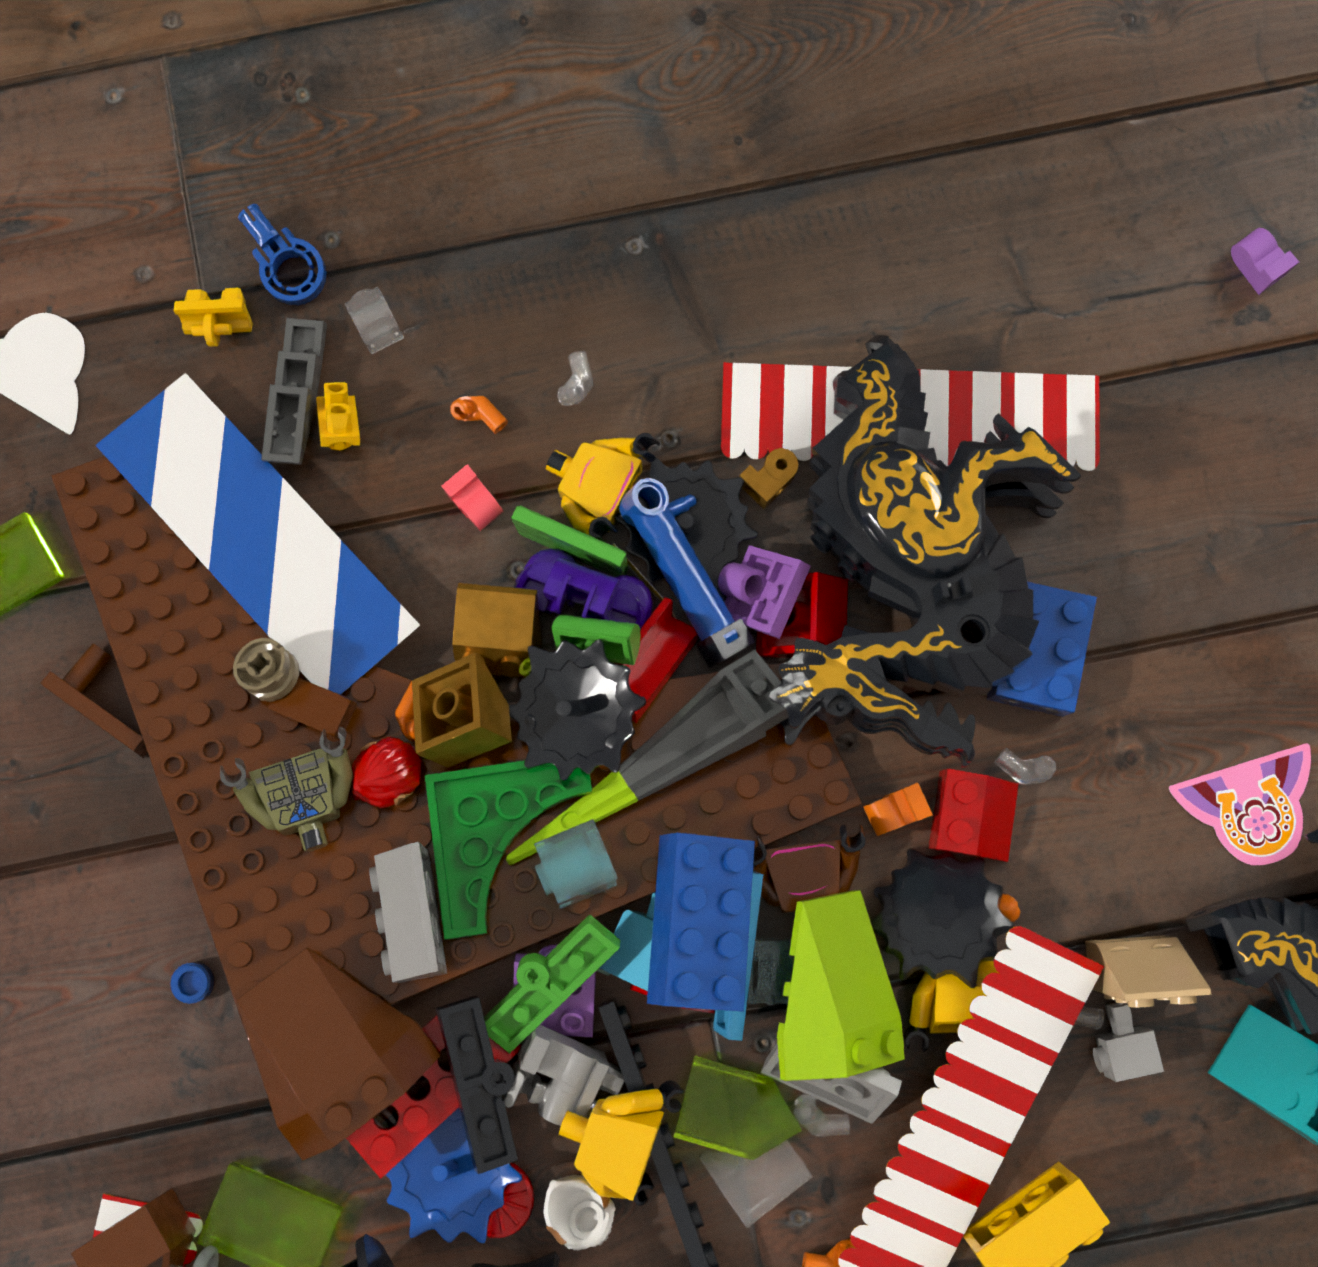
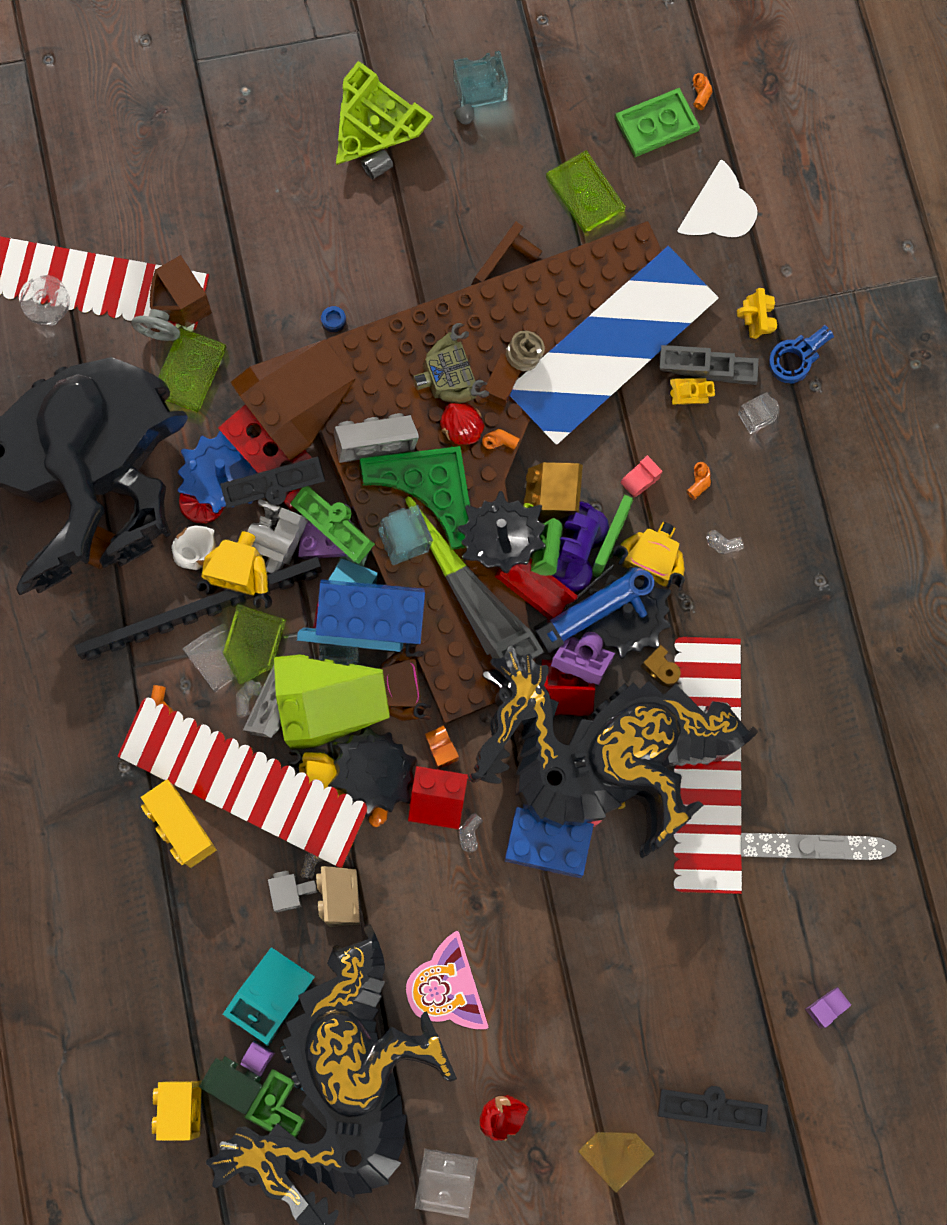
camera: 80 degrees right, 5 degrees down
(459, 712) = (498, 464): pearl gold slope -> none
(1029, 270) = (815, 846): none -> light grey piece

